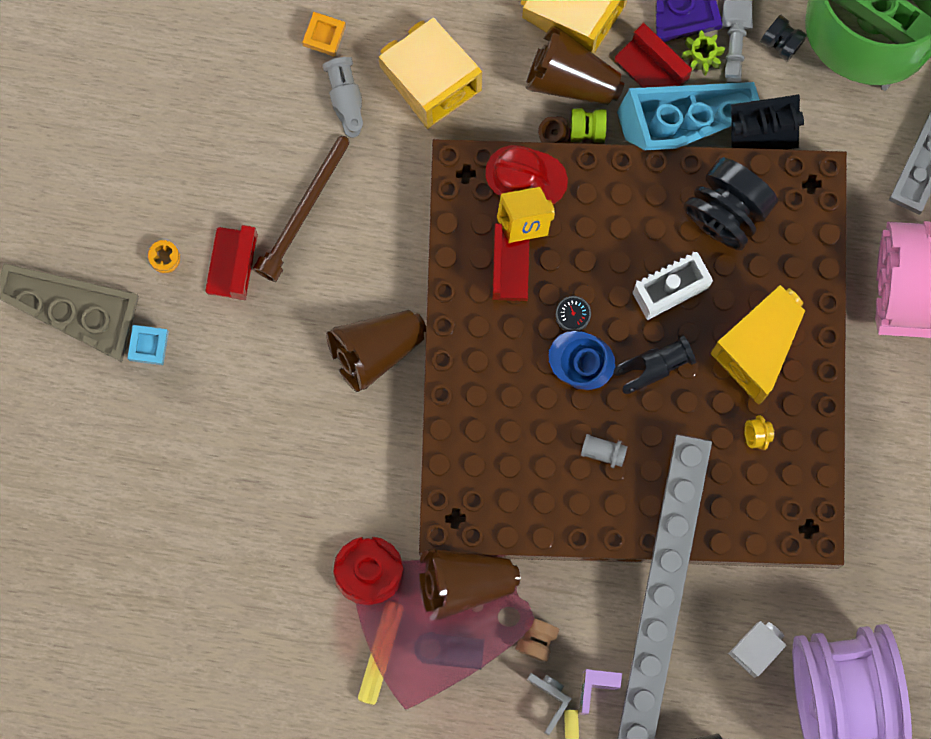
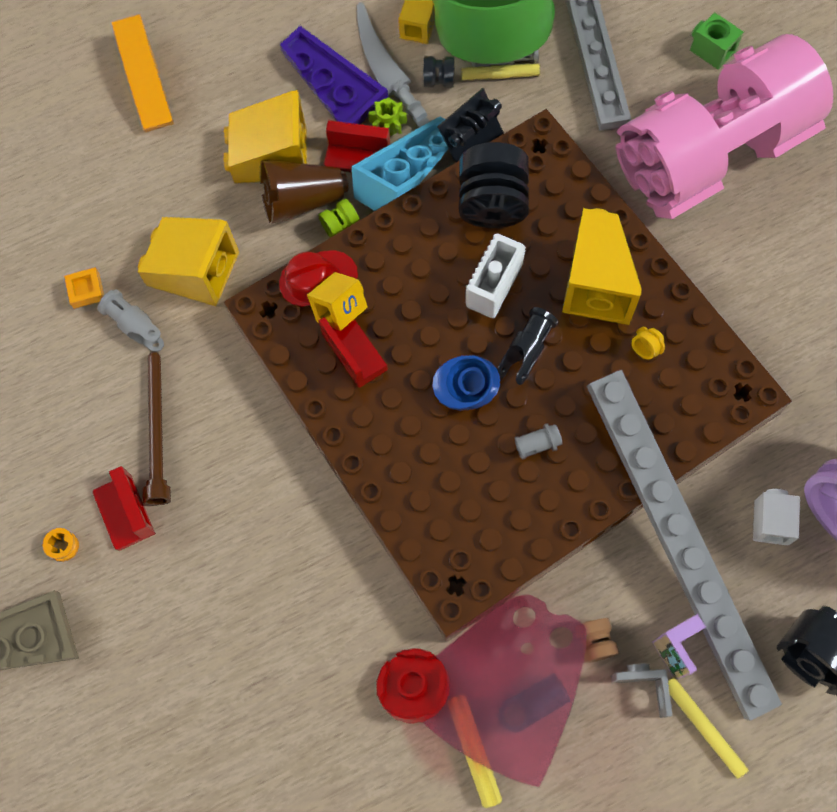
camera: 30 degrees left, 10 degrees down
(148, 345) = (90, 626): medium azure tile -> none
(374, 345) = (286, 494): reddish brown cone -> none
(463, 581) = (501, 635): reddish brown cone -> none
(550, 124) = (312, 235): reddish brown plate -> none
(573, 314) = (431, 353): black tile -> none
(866, 90) = (500, 71): none -> light yellow piece

